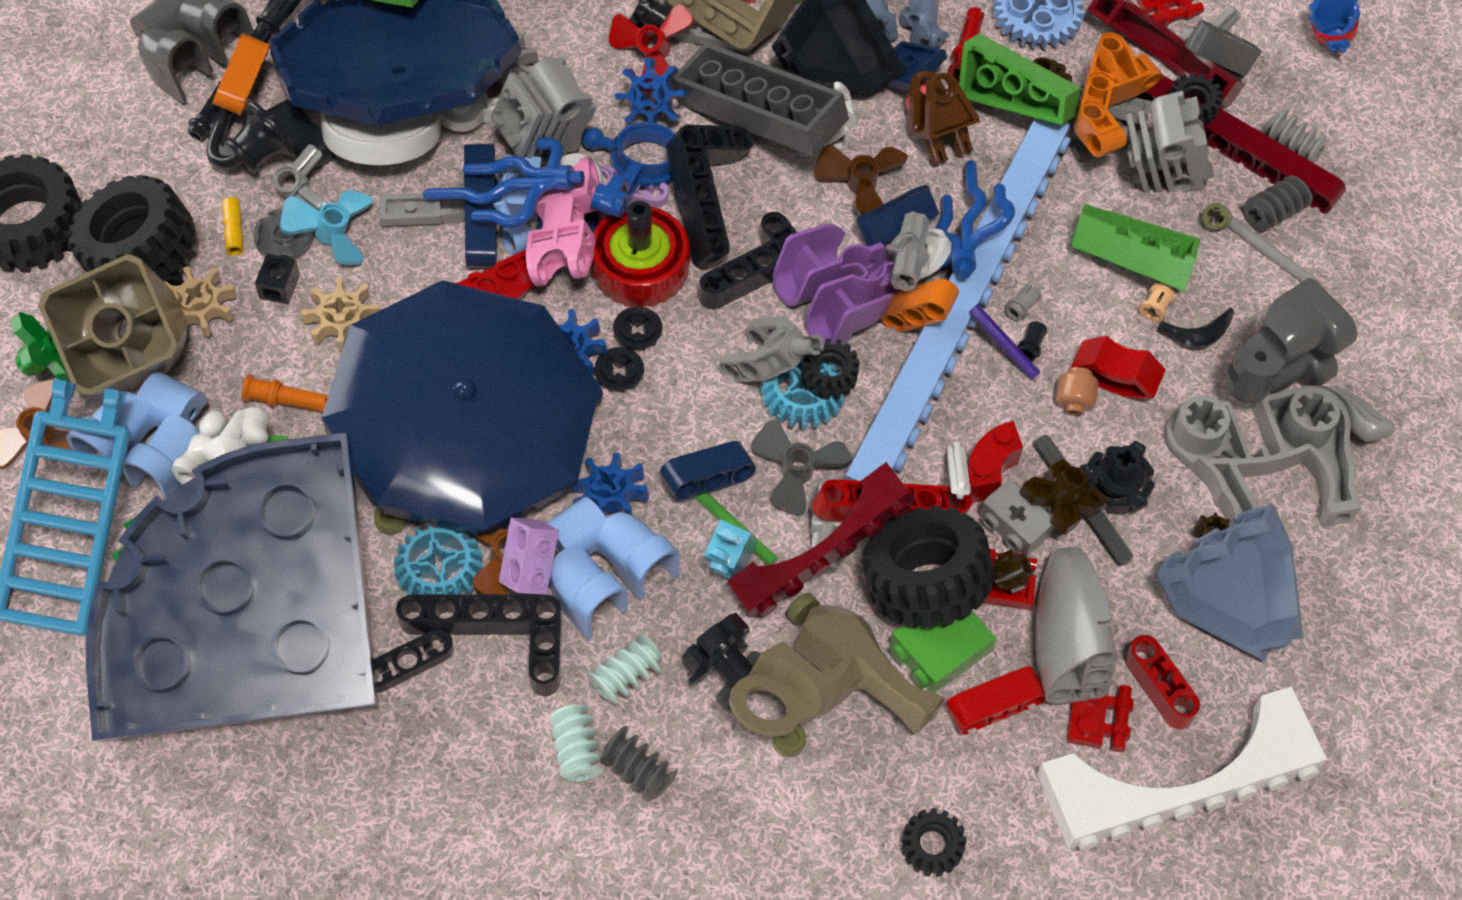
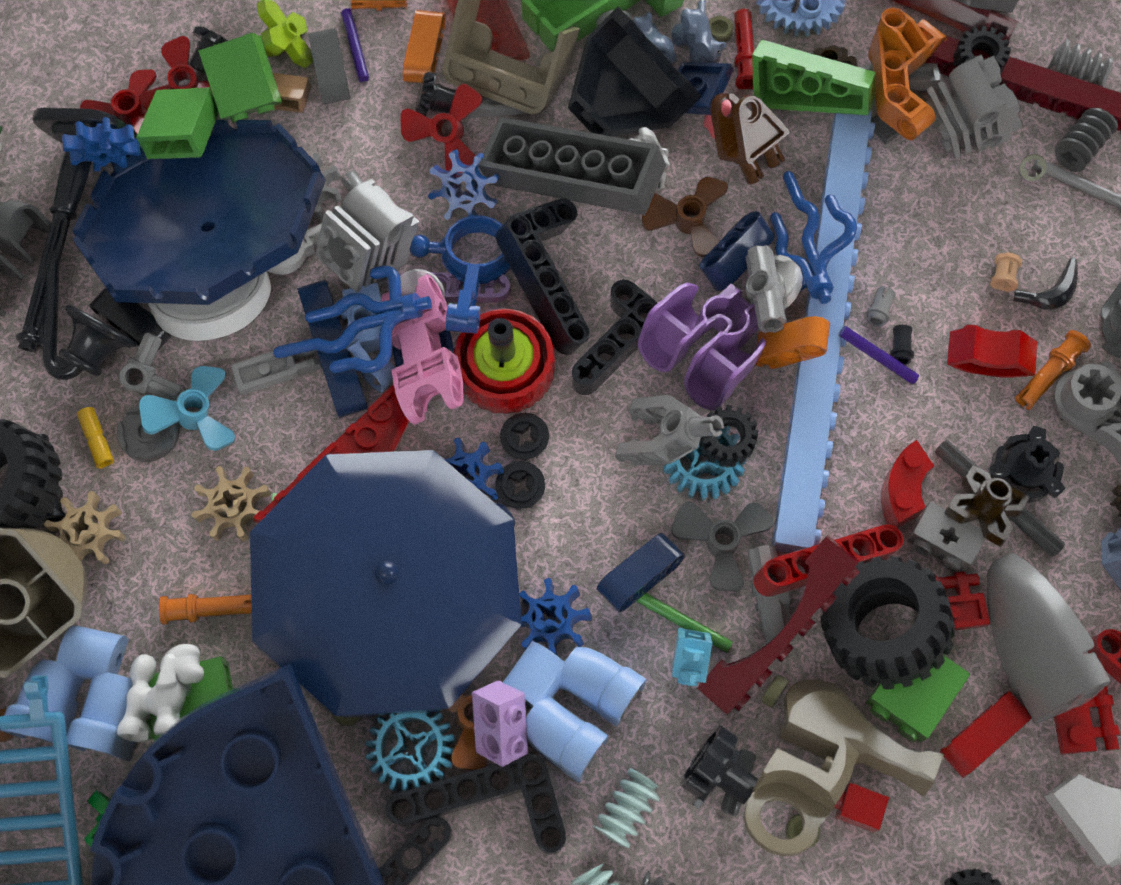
camera: 10 degrees left, 10 degrees up
(241, 74) = (53, 276): orange beam -> none
(274, 288) = (160, 495): black brick -> none
(851, 729) = (861, 807): none -> red brick
(949, 21) = (721, 28): none -> olive tile
(958, 470) = (880, 506): white axle -> none
(1012, 571) = (966, 600): dark brown gear -> none
(1077, 391) = (961, 387): nougat head -> none
(1137, 245) = (975, 221): bright green wedge -> none
(1201, 384) = (1060, 360): none -> orange pin

